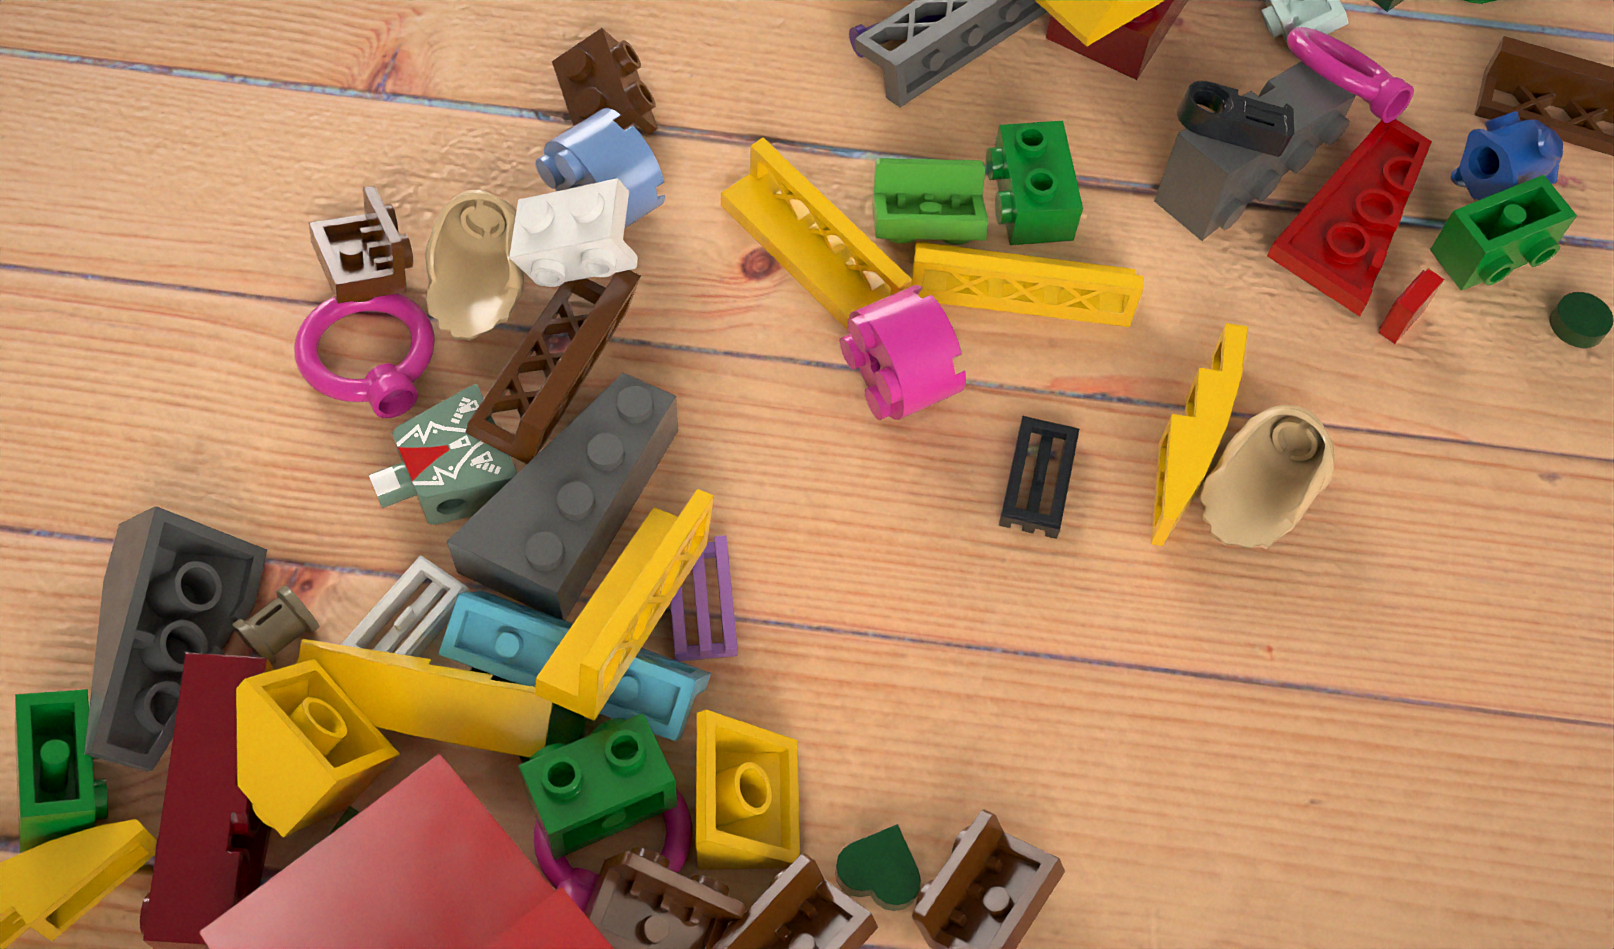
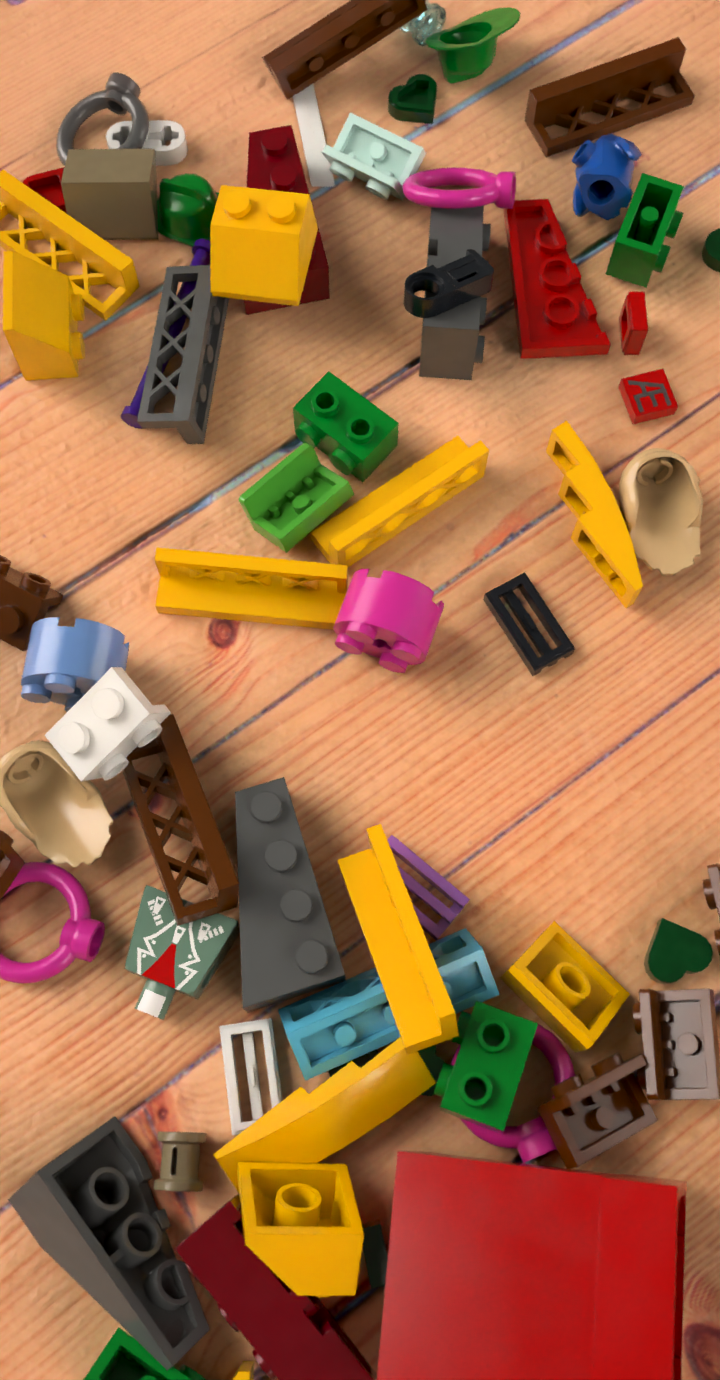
camera: 40 degrees left, 10 degrees up
(1363, 381) = (648, 396): none -> red tile

